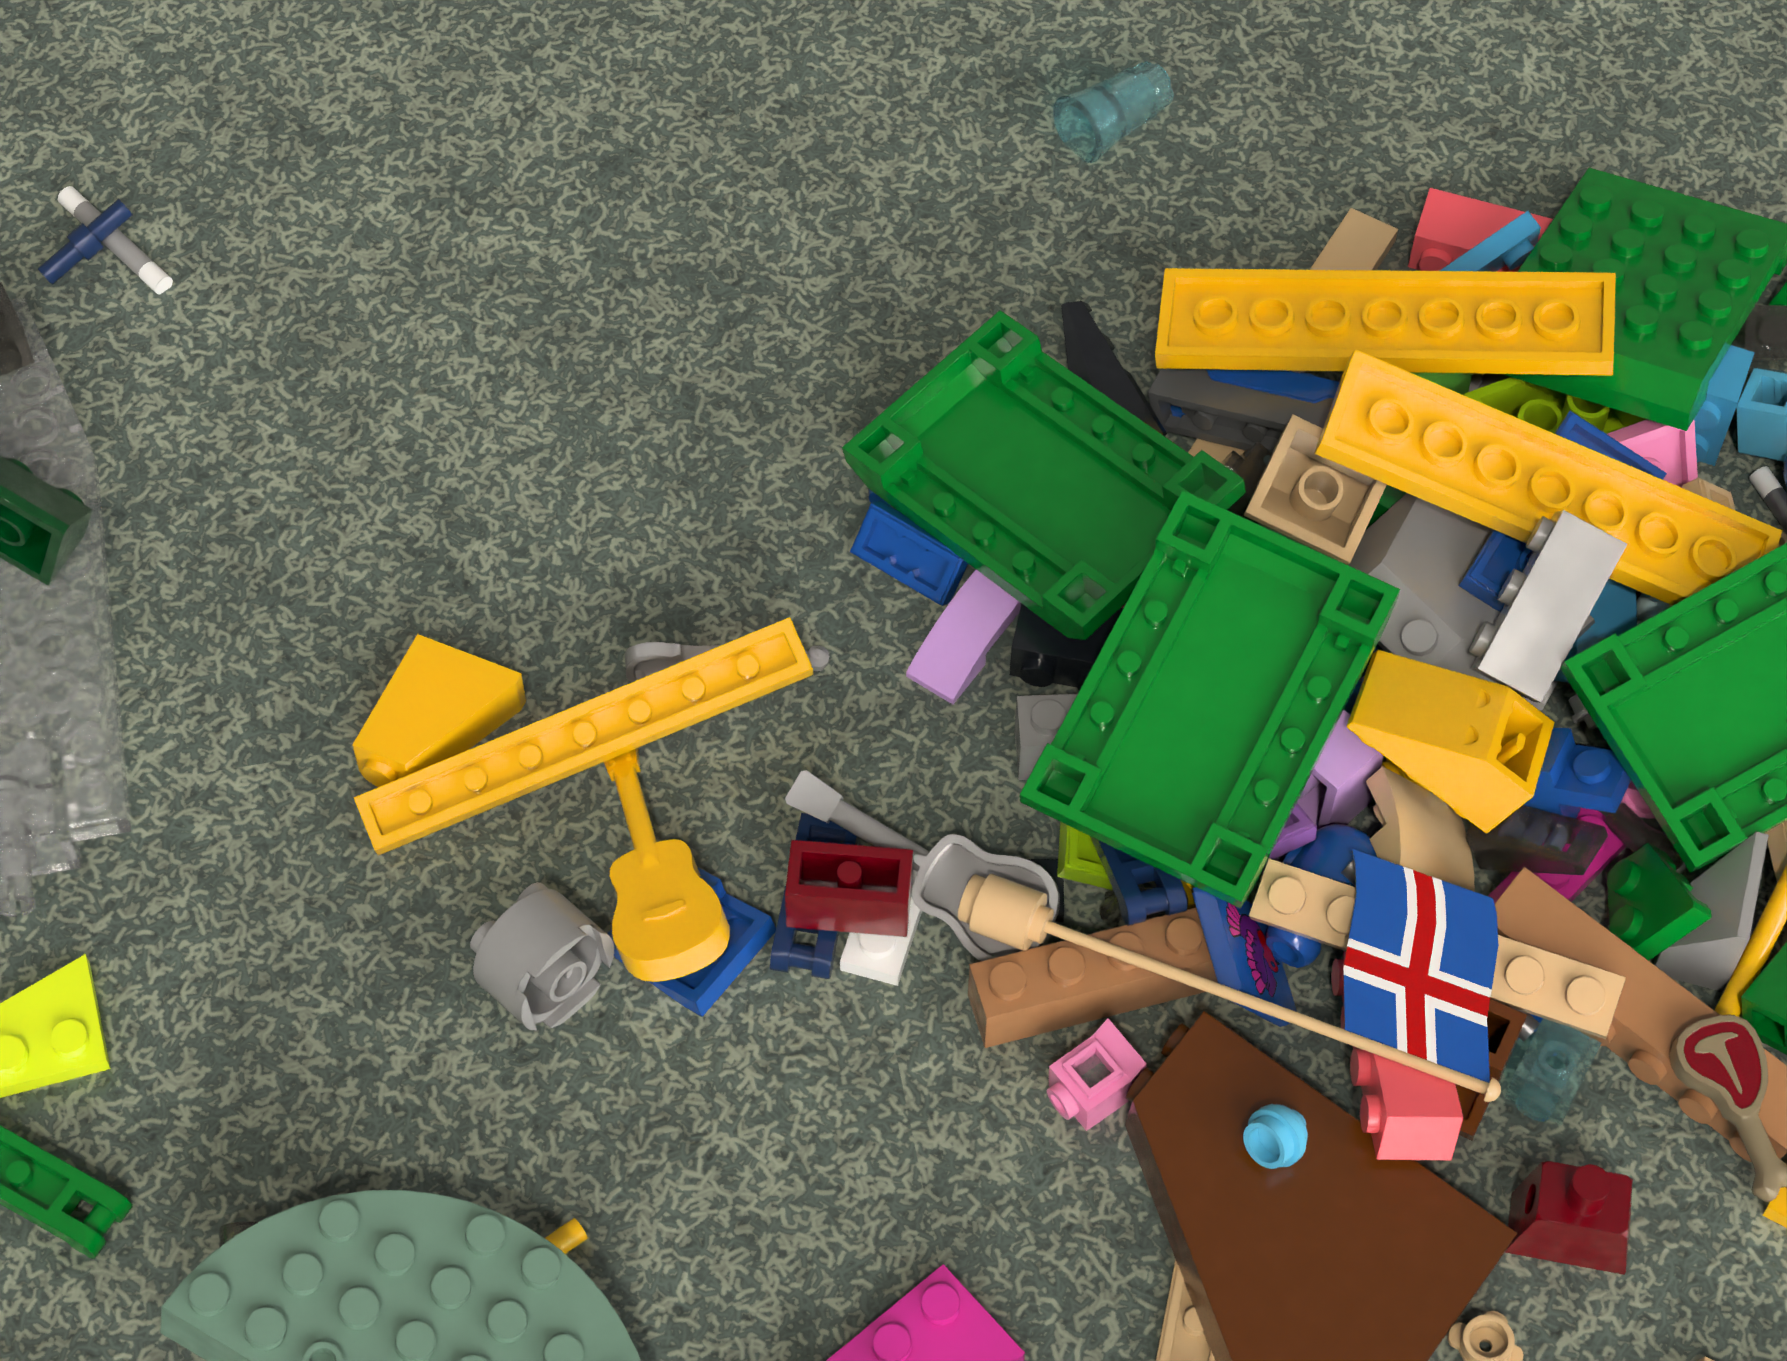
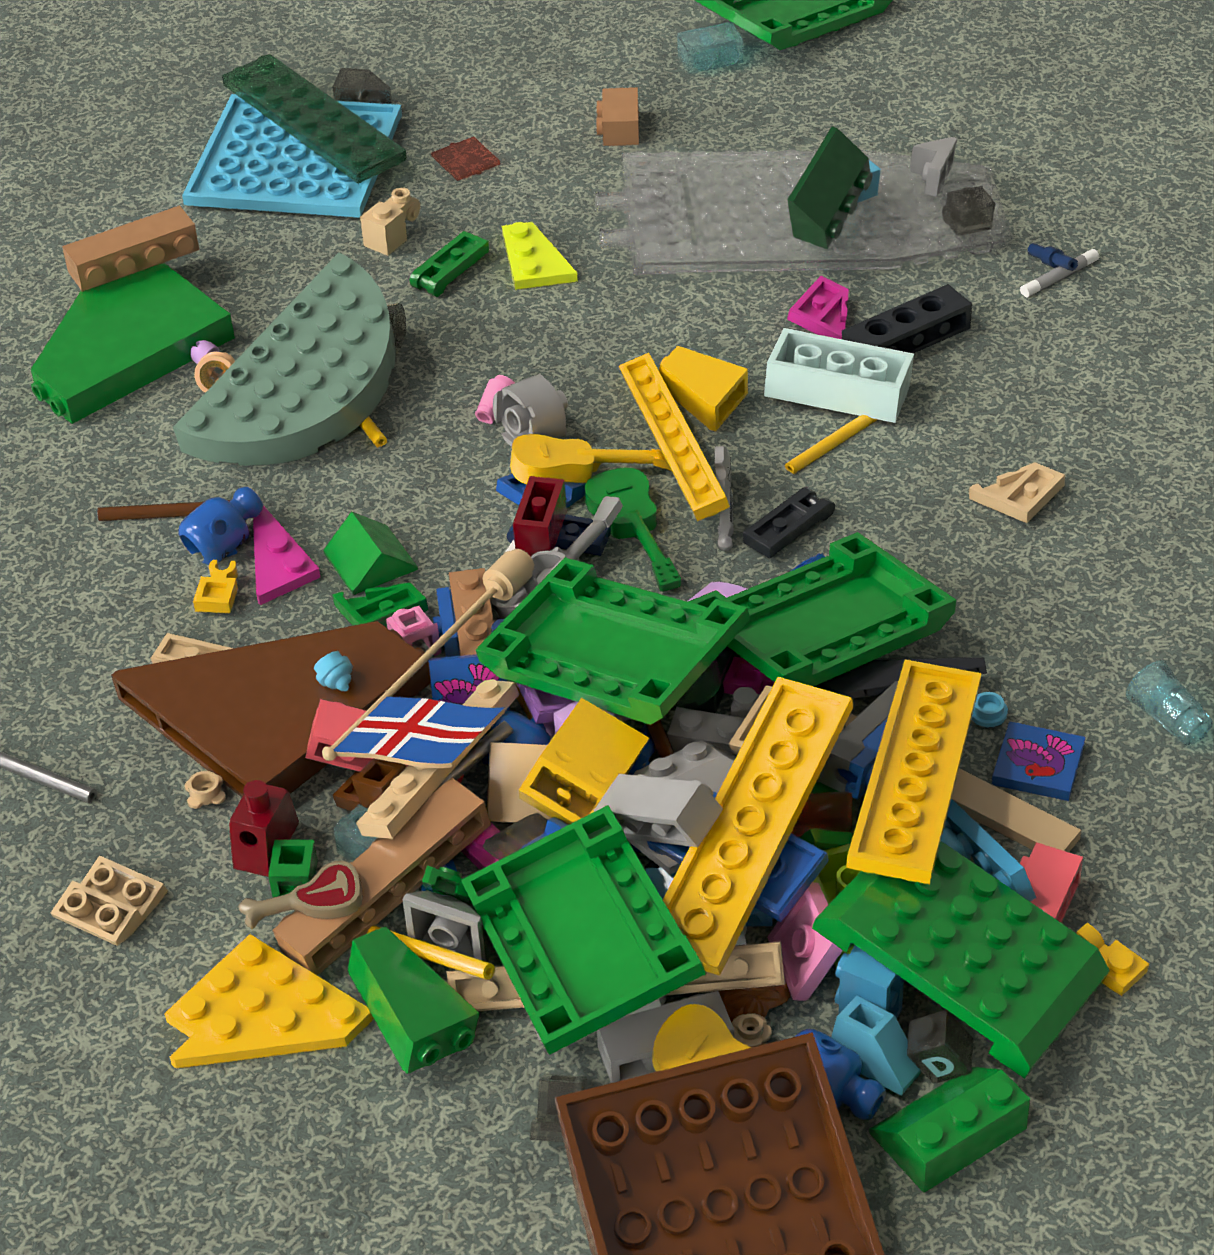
camera: 100 degrees right, 15 degrees down
(214, 555) = (822, 308): none -> dark pink wing
(259, 402) = (916, 322): none -> black brick
(420, 511) = (838, 375): none -> light aqua brick
(468, 1041) = (485, 408): none -> bright pink cone
(542, 525) = (828, 443): none -> yellow piece
(676, 279) = (1020, 492): none -> tan wing
(741, 806) = (636, 516): none -> green piece
(767, 571) = (787, 522): none -> black plate
(898, 1191) = (367, 554): none -> green slope
(1030, 1146) = (379, 603): none -> green wing
(1066, 1025) = (446, 620): none -> blue plate
(1138, 311) = (989, 710): none -> medium azure plate
(1225, 239) = (1038, 761): none -> blue tile
(1556, 178) = (1124, 964): none -> yellow plate
(1647, 1147) = (291, 865): none -> green brick

